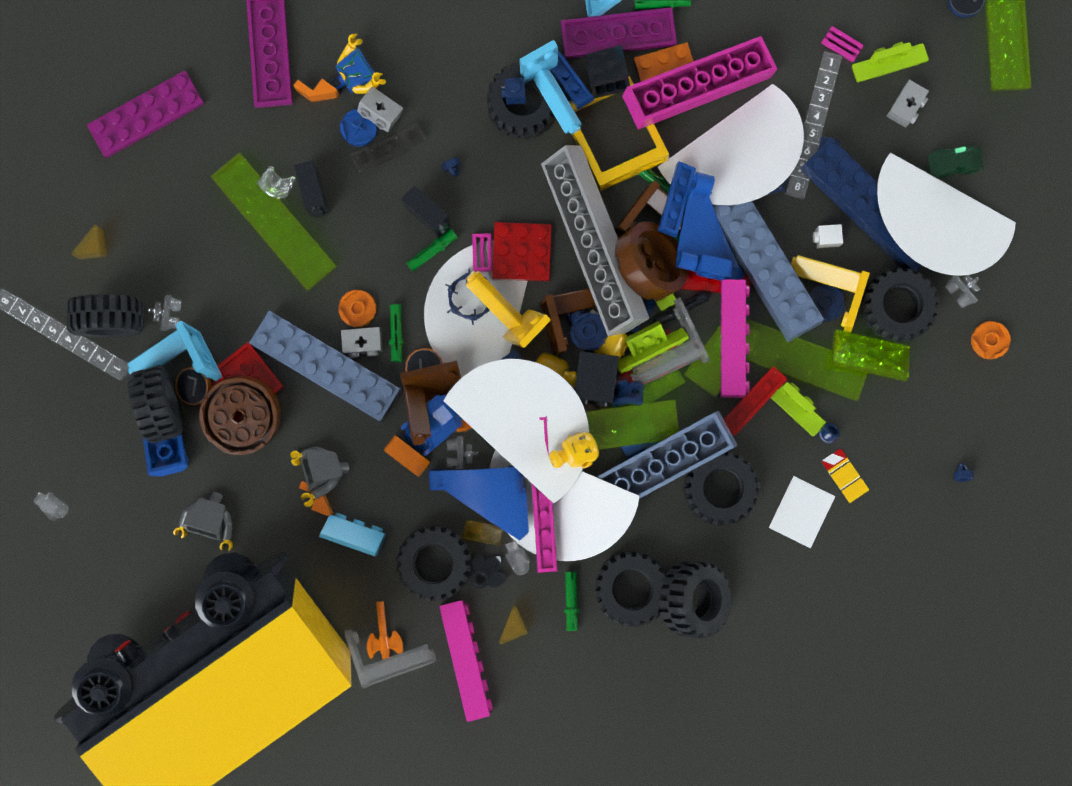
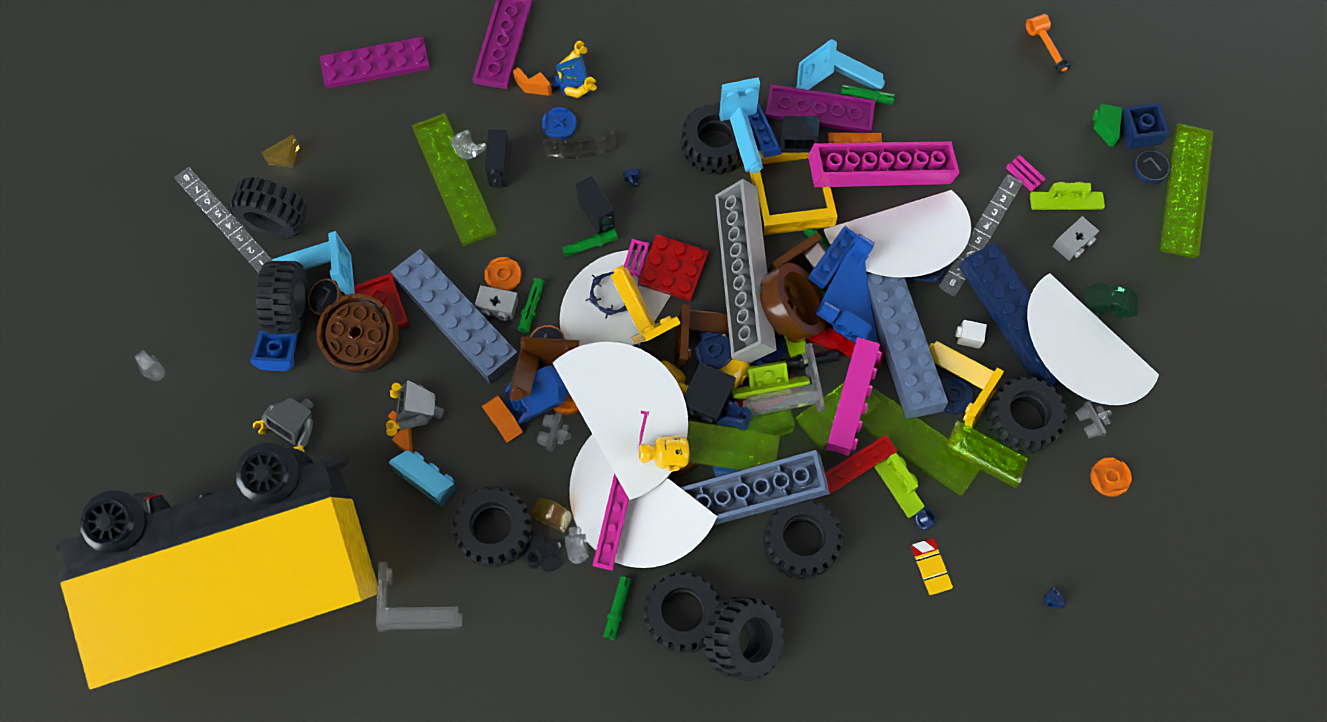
camera: 10 degrees right, 15 degrees down
(169, 304) = (331, 221): clear hips -> none
(379, 109) = (583, 111): light grey brick -> none
(384, 643) = (417, 593): orange piece -> none
(465, 660) = (490, 635): dark pink brick -> none
(491, 492) = (572, 473): blue panel -> none
(514, 91) = (709, 121): dark blue brick -> none
(514, 627) = (551, 616): clear yellow slope -> none
(802, 512) = (878, 590): white sticker -> none

